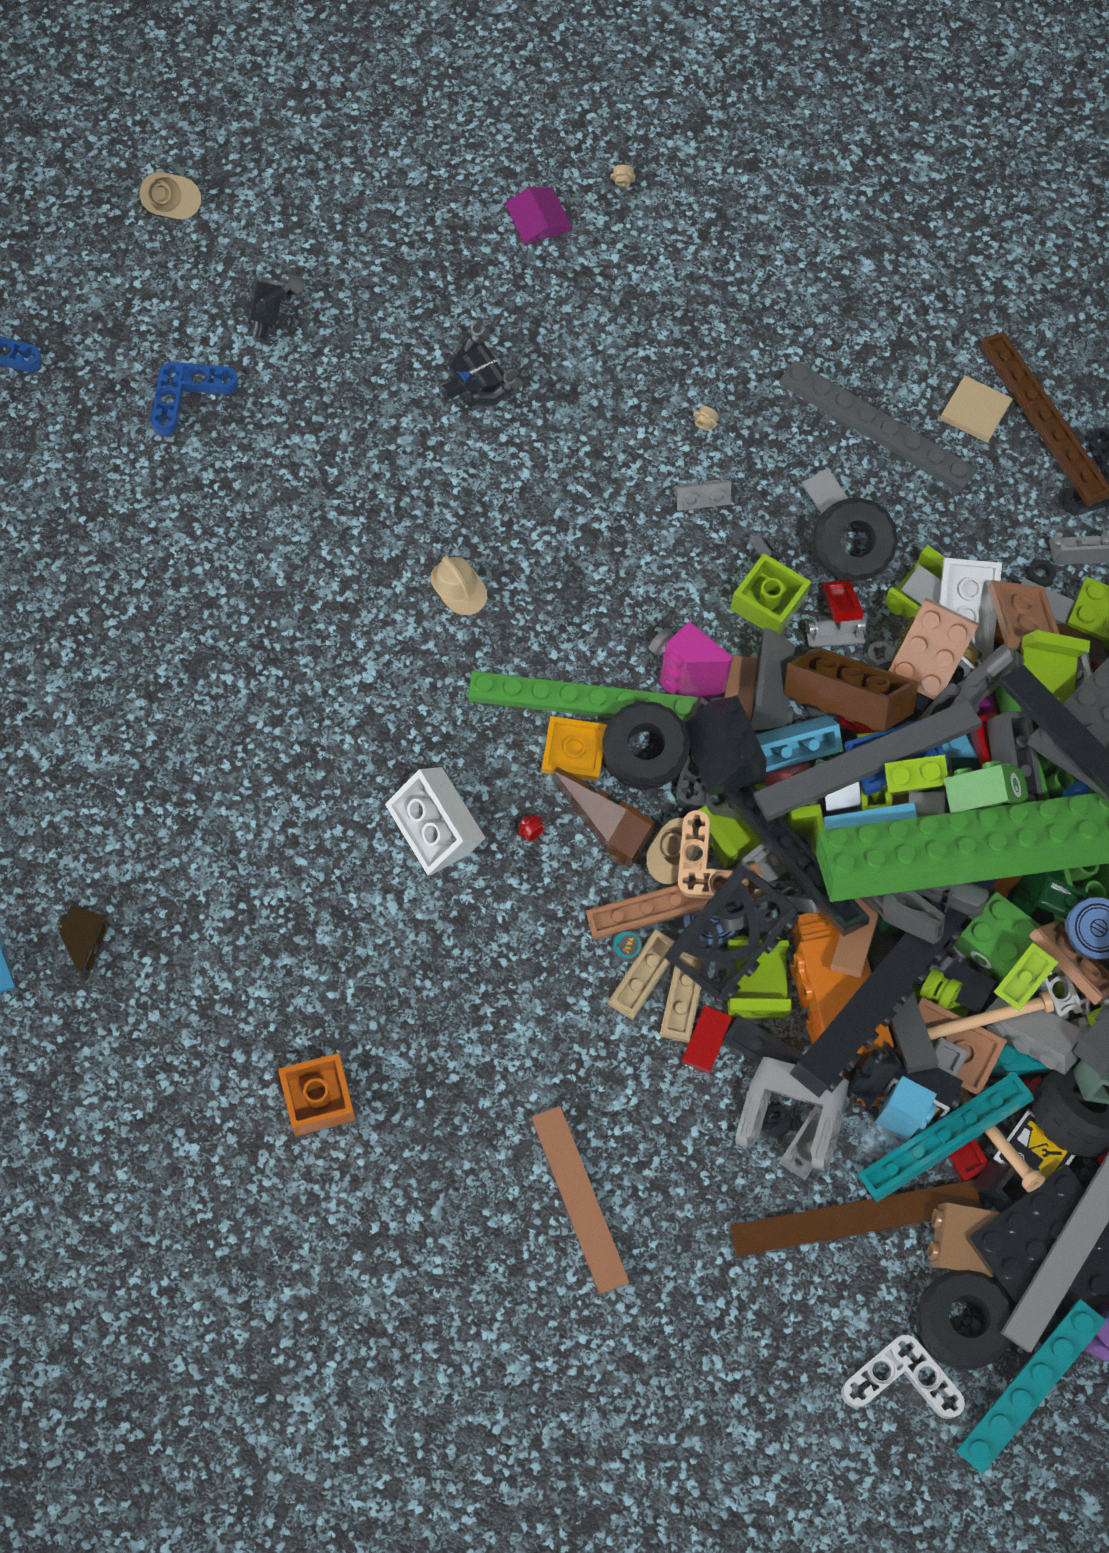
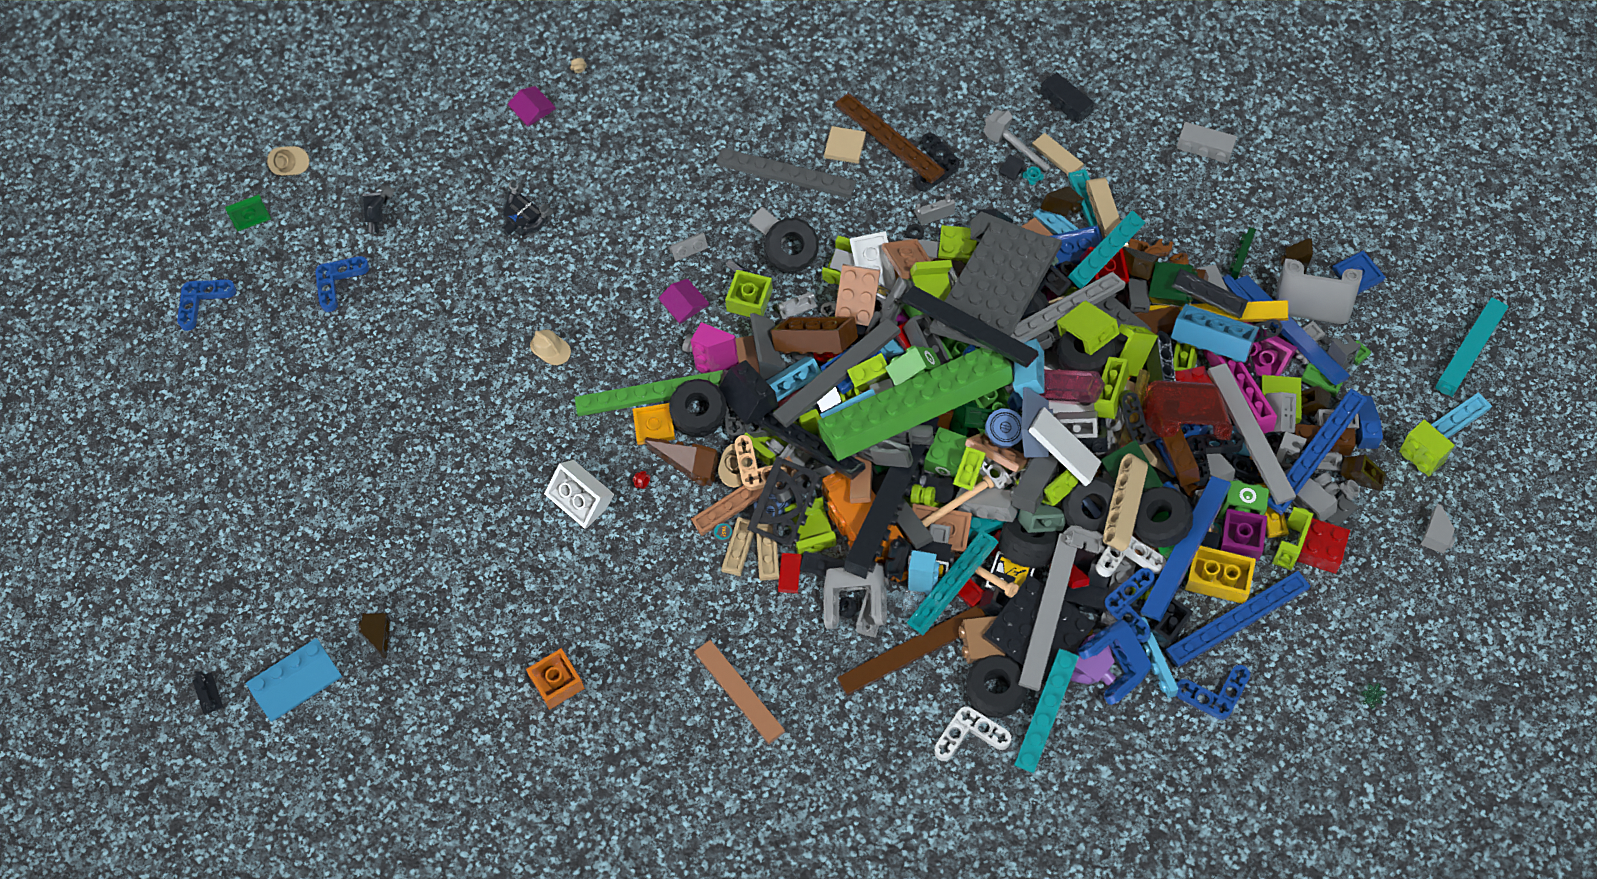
camera: 10 degrees left, 5 degrees down
(90, 256) = (248, 213): none -> green plate
(671, 573) = (683, 300): none -> magenta slope
(706, 418) = (676, 199): tan plate -> none
(741, 840) = (775, 446): none -> light grey plate
(842, 601) = (795, 285): red tile -> none

